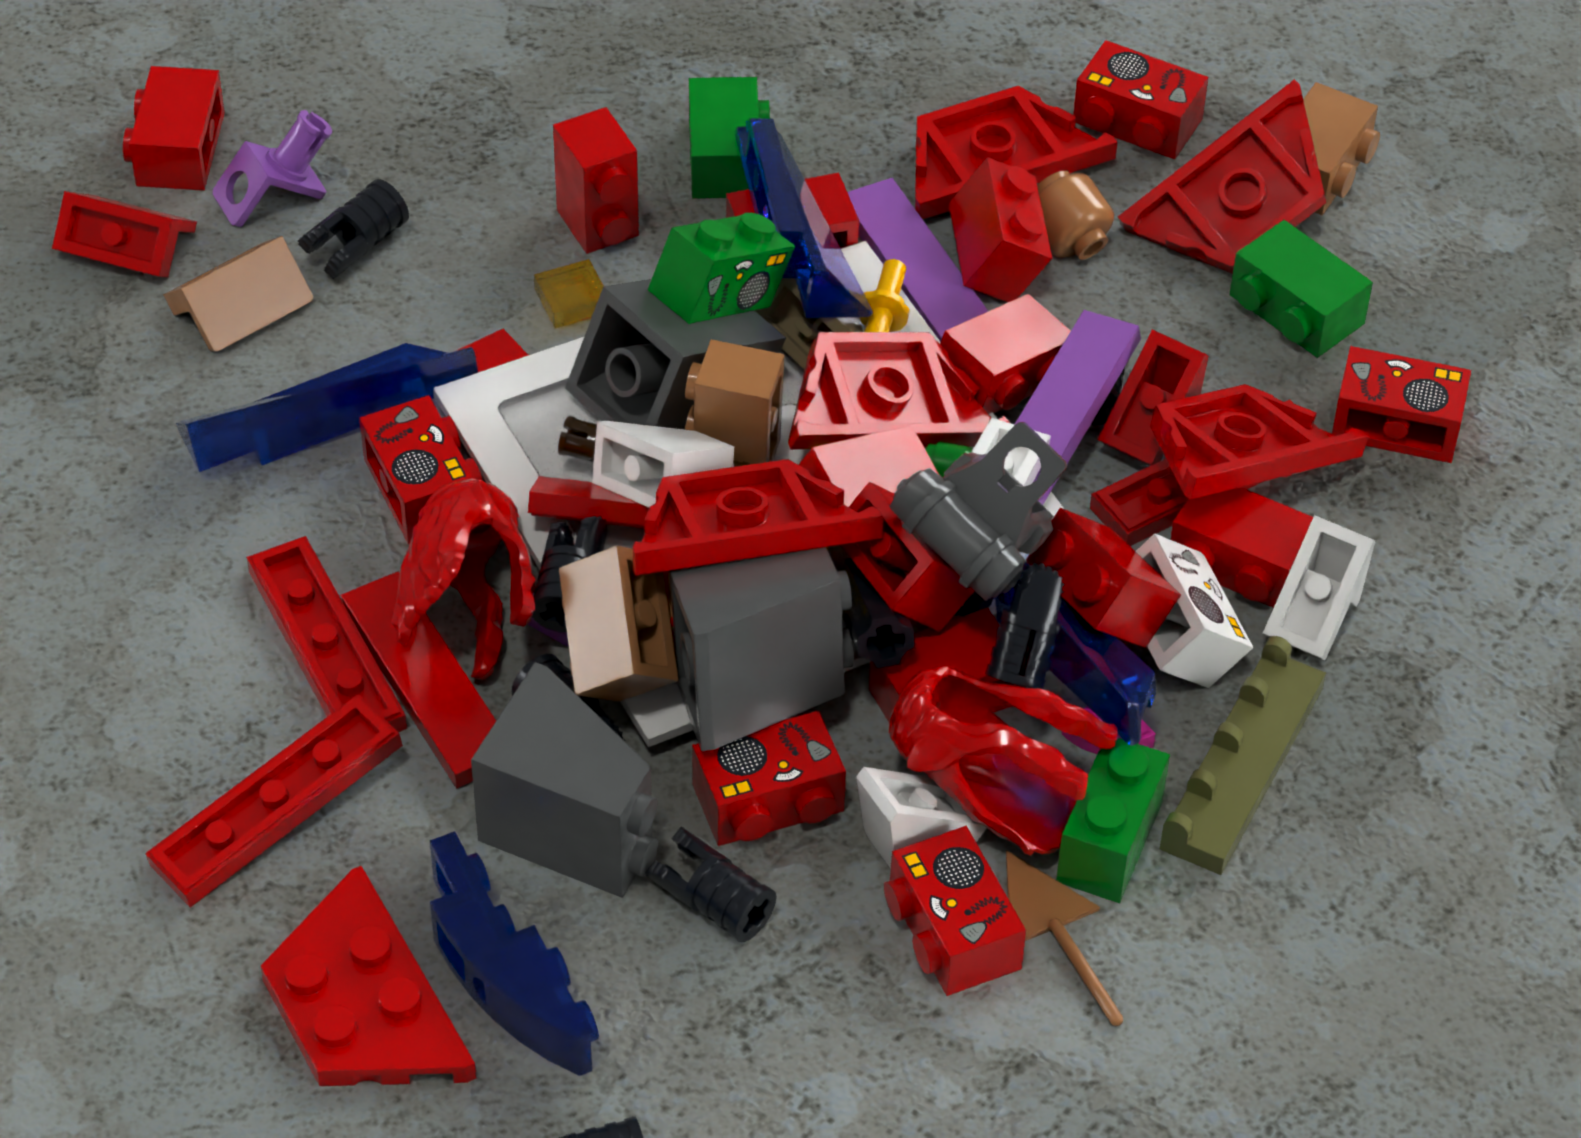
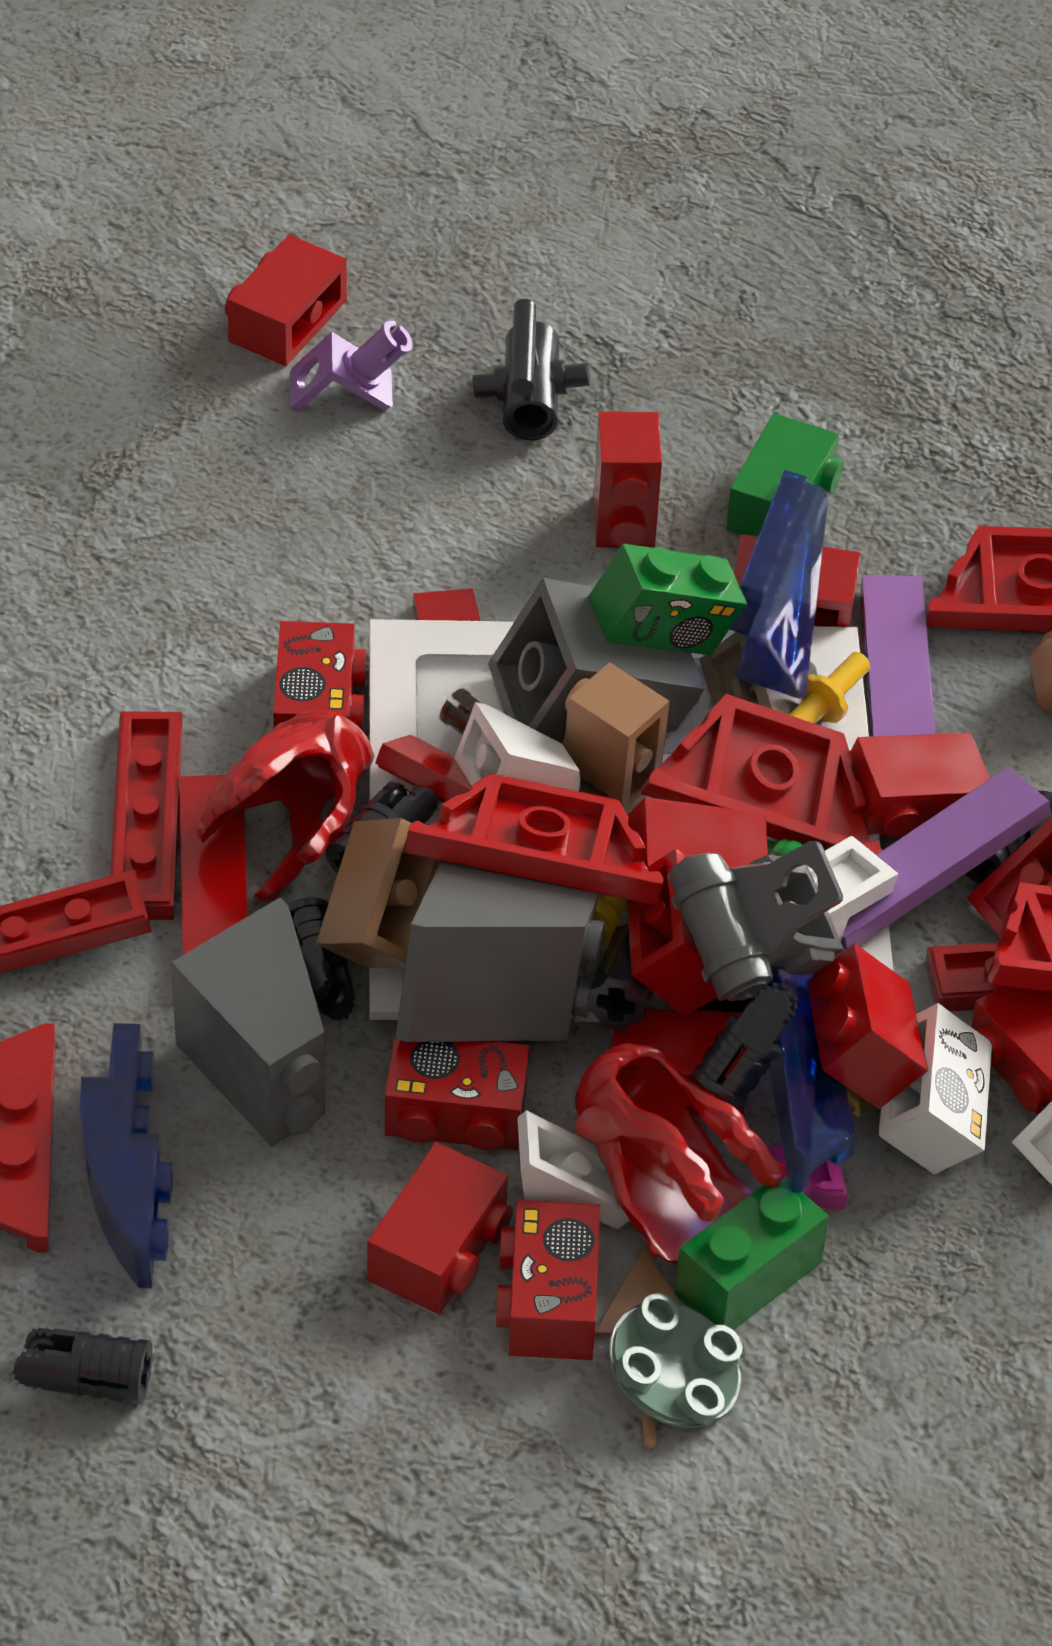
camera: 25 degrees right, 0 degrees up
(118, 233) = (182, 377): red panel -> none
(242, 294) = (257, 473): medium nougat panel -> none
(322, 405) = (262, 599): clear blue wedge -> none
(361, 221) = (399, 446): black hinge -> none
(444, 121) = (530, 376): none -> black pin
(569, 292) = (556, 565): clear yellow tile -> none
(717, 889) = (351, 1171): black hinge -> none
(827, 907) = (438, 1229): none -> red brick
(1000, 230) = (987, 663): red brick -> none
(1103, 938) = (675, 1362): none -> sand green dish
(1243, 759) = (920, 1252): olive hinge -> none

